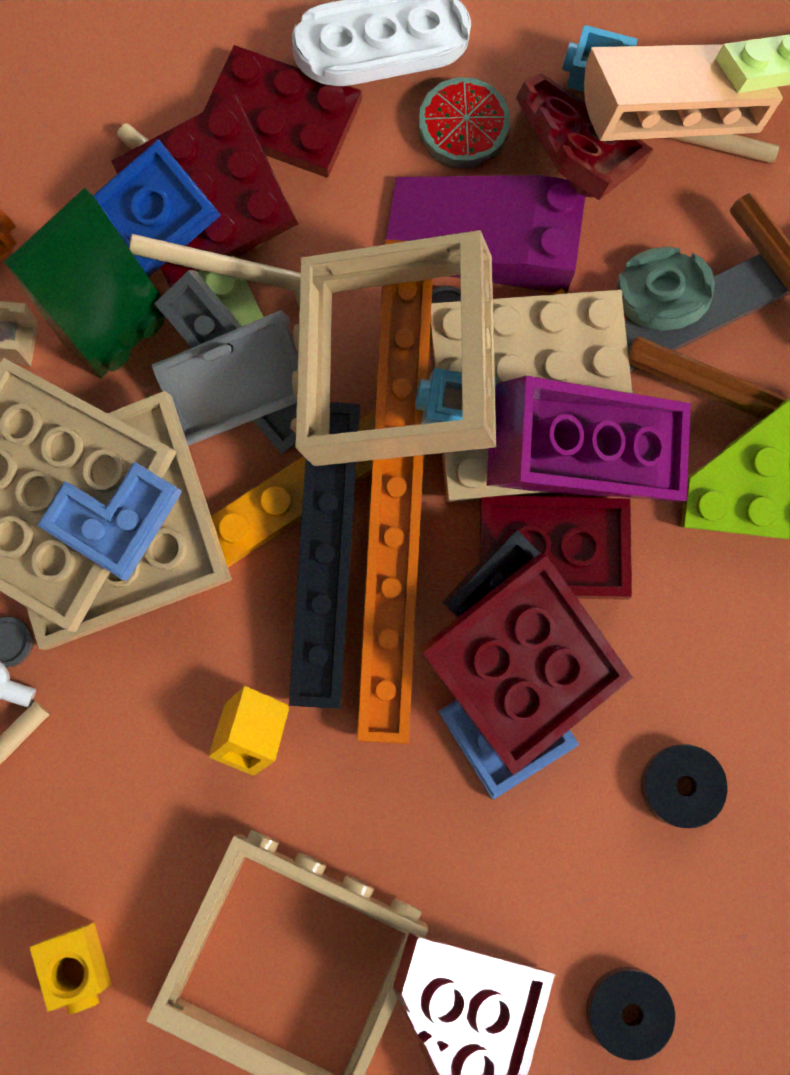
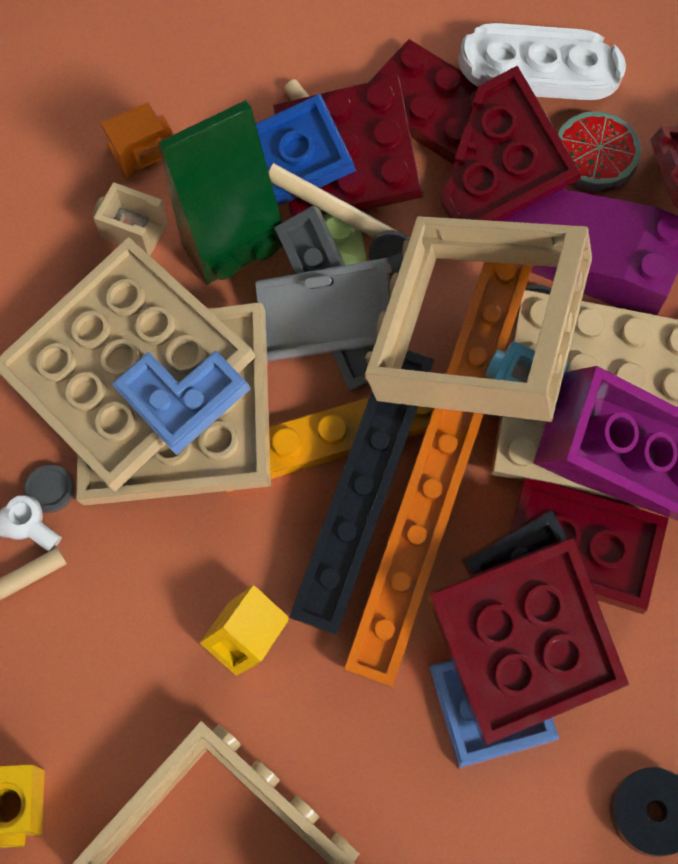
camera: 20 degrees right, 10 degrees down
(278, 292) = (390, 246): none -> dark grey piece
(372, 156) = (506, 154): none -> dark red plate

